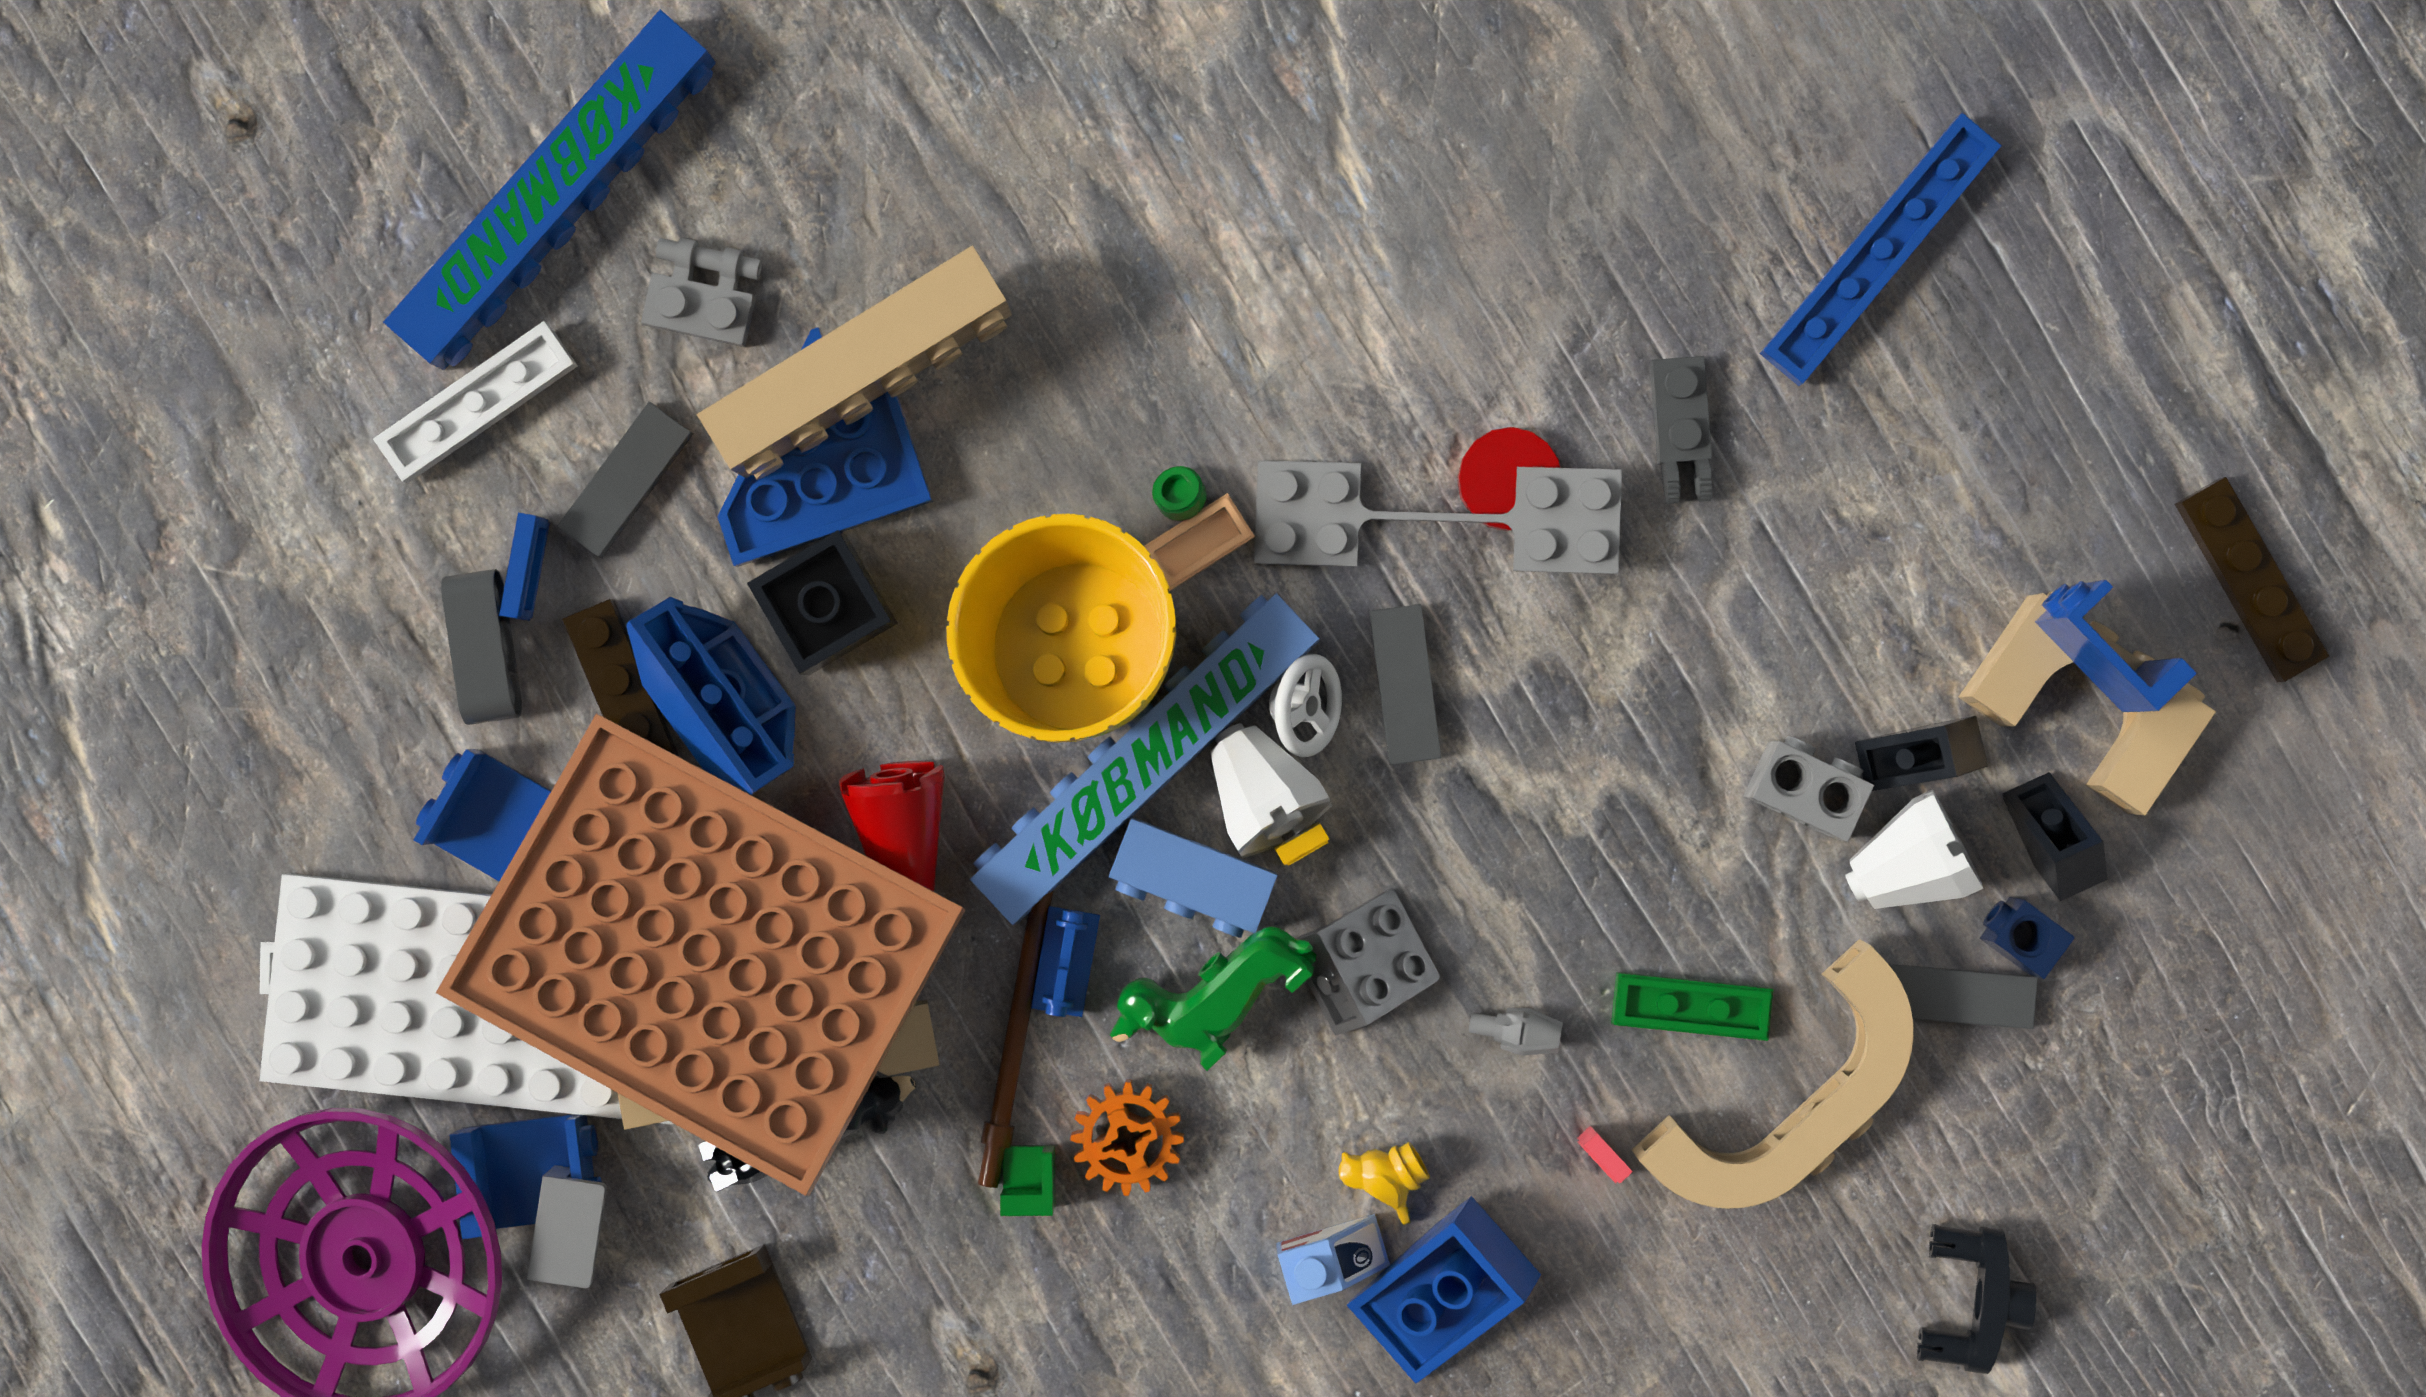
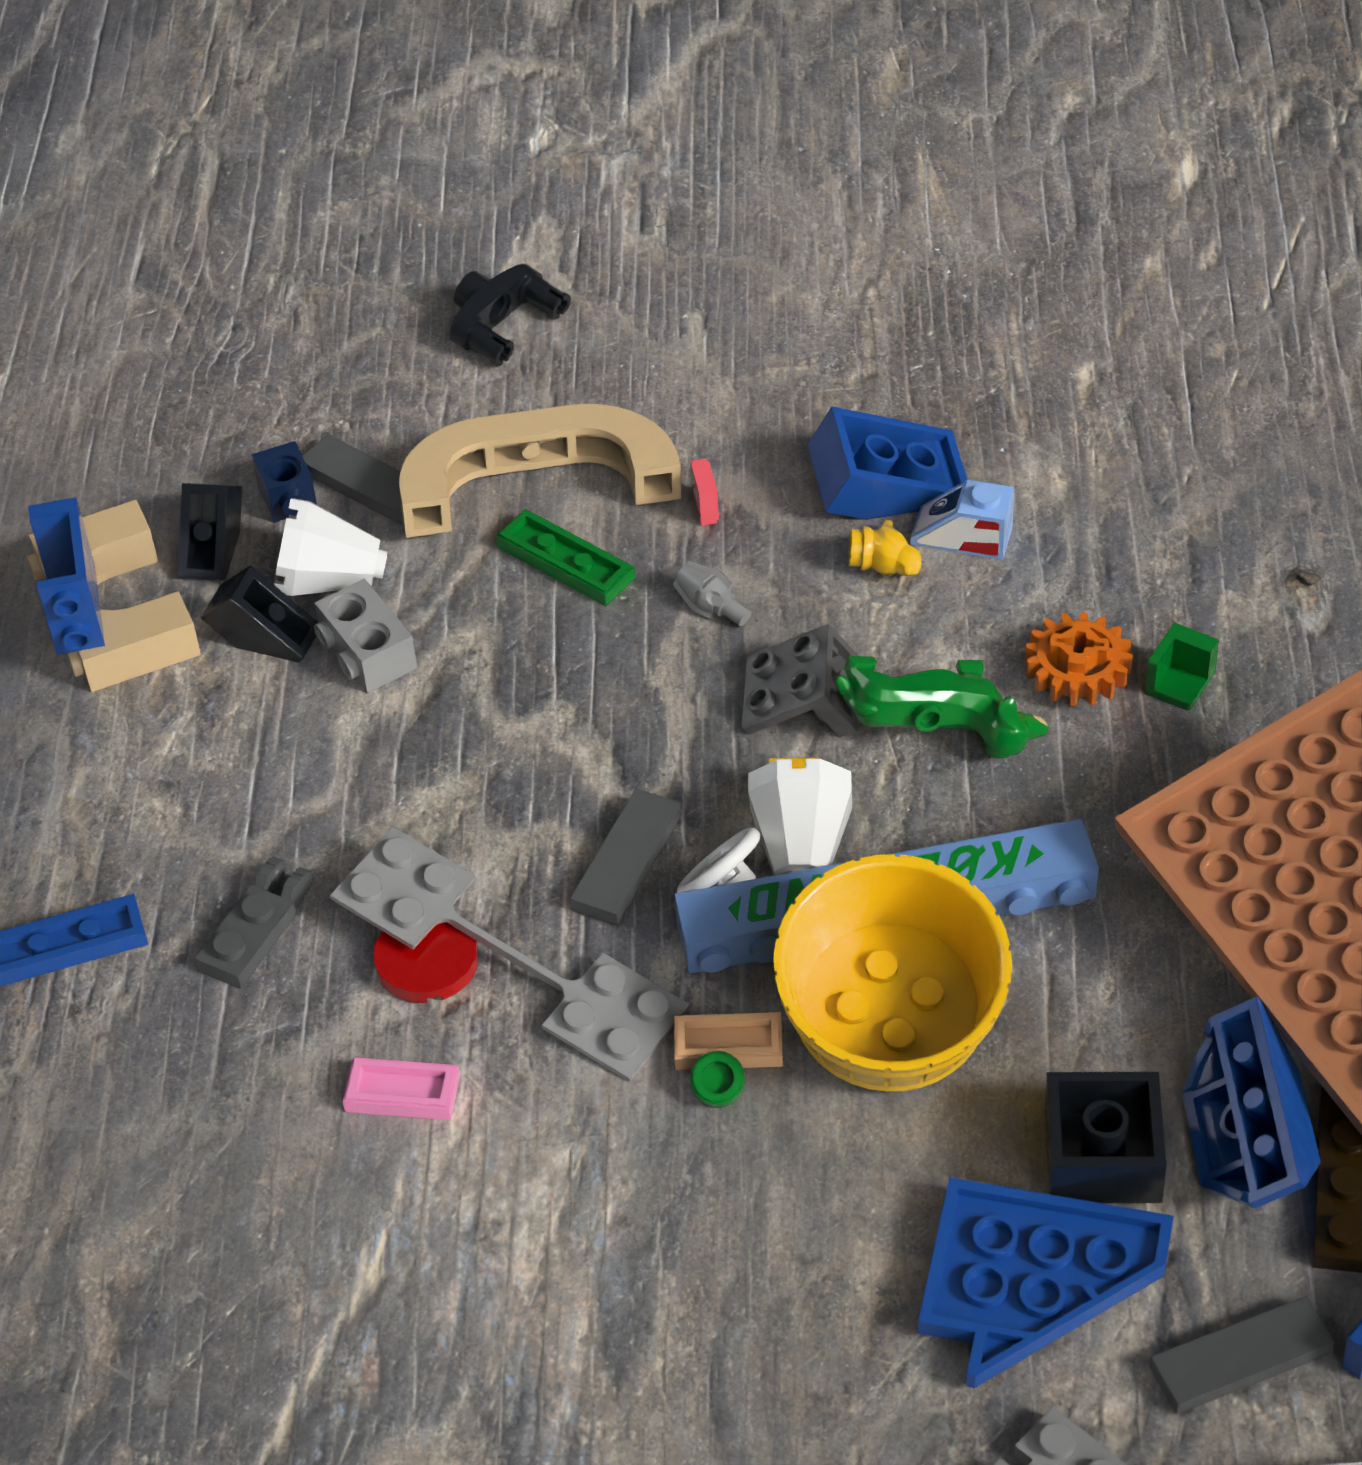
camera: 140 degrees left, 40 degrees down
(856, 365) = (947, 1283): tan brick -> none
(898, 816) = (1132, 952): red cone -> none
(998, 1132) = (1185, 716): reddish brown bar -> none
(1065, 962) = (1056, 793): blue hinge -> none
(1192, 878) = (900, 795): medium blue brick -> none
(1439, 339) = (401, 1088): none -> bright pink tile

